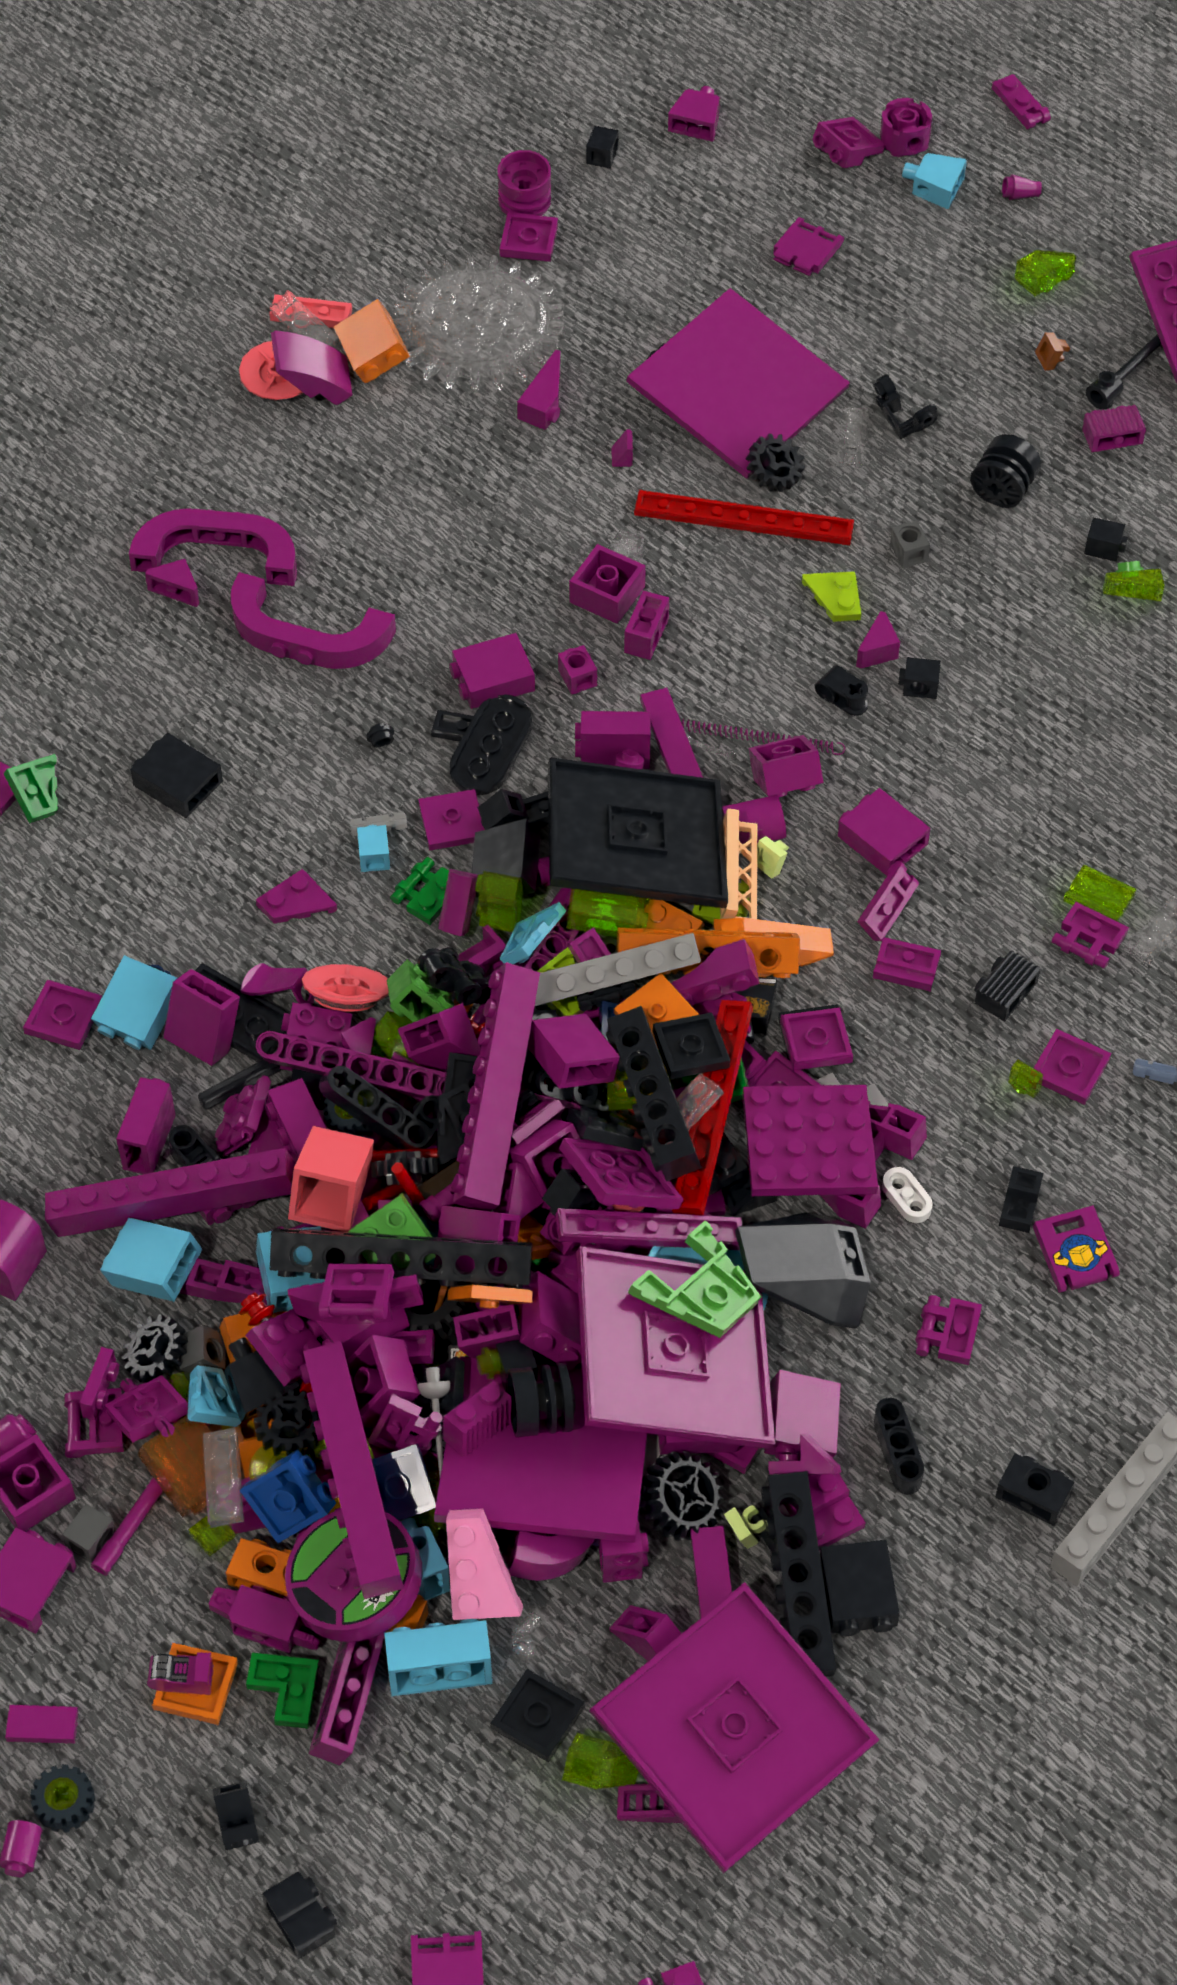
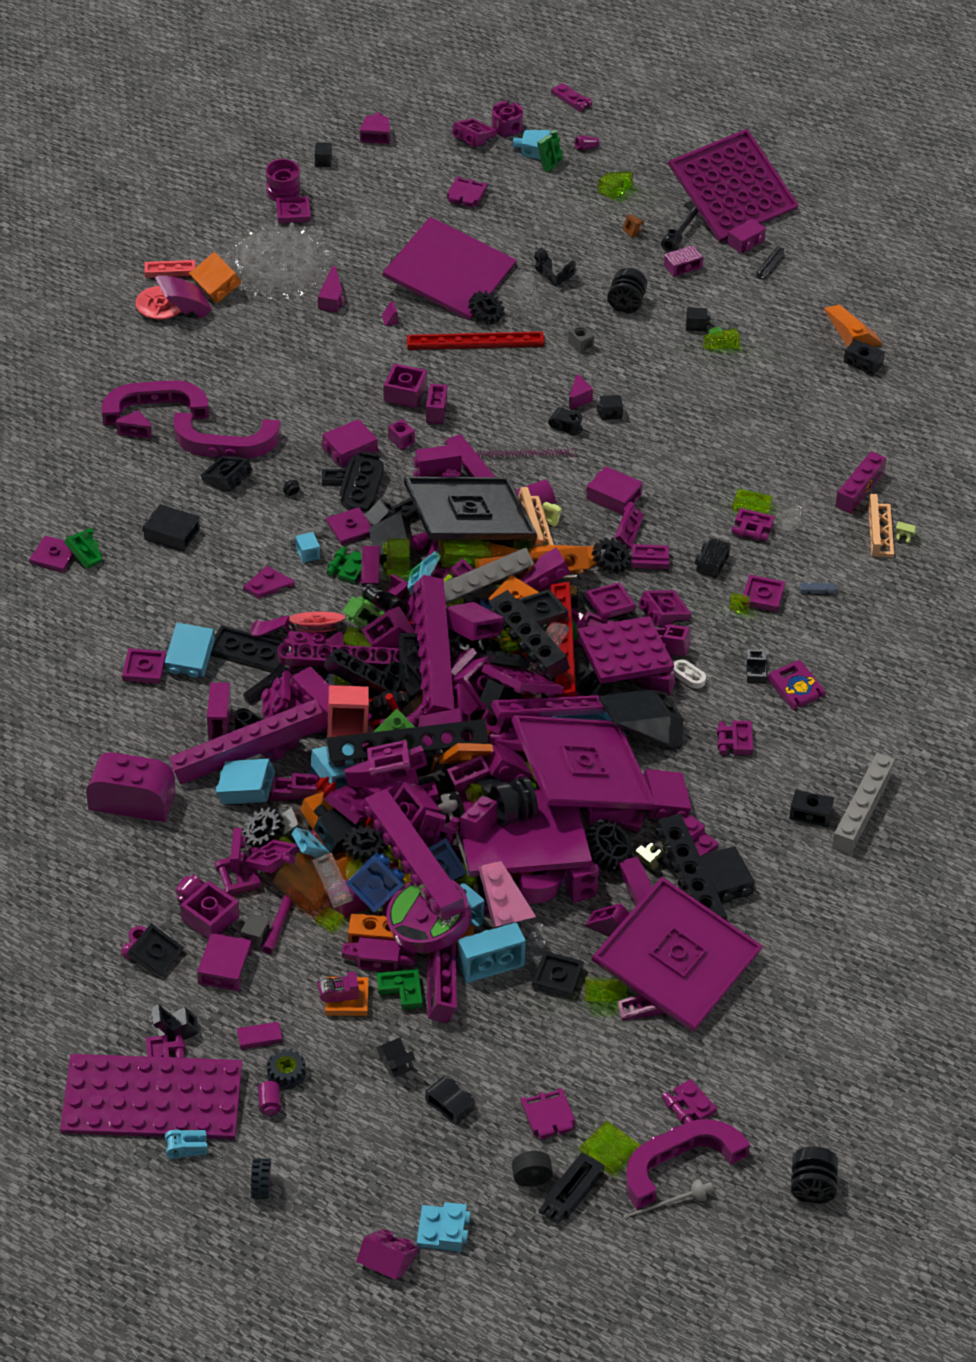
camera: 15 degrees left, 10 degrees down
(201, 1017) = (234, 649): magenta brick -> none
(290, 690) = (228, 472): none -> black plate
(302, 320) = (166, 270): clear plate -> none
(711, 1297) = (595, 732): bright green wing -> none
(786, 766) = (546, 463): magenta brick -> none
(813, 1460) = (679, 808): magenta slope -> none
(835, 593) = (545, 372): lime wing -> none
(844, 952) = (611, 555): none -> black gear
(898, 1432) = (725, 800): black beam -> none
(901, 1063) = (664, 607): none -> magenta plate
(950, 197) = (550, 151): none -> green plate

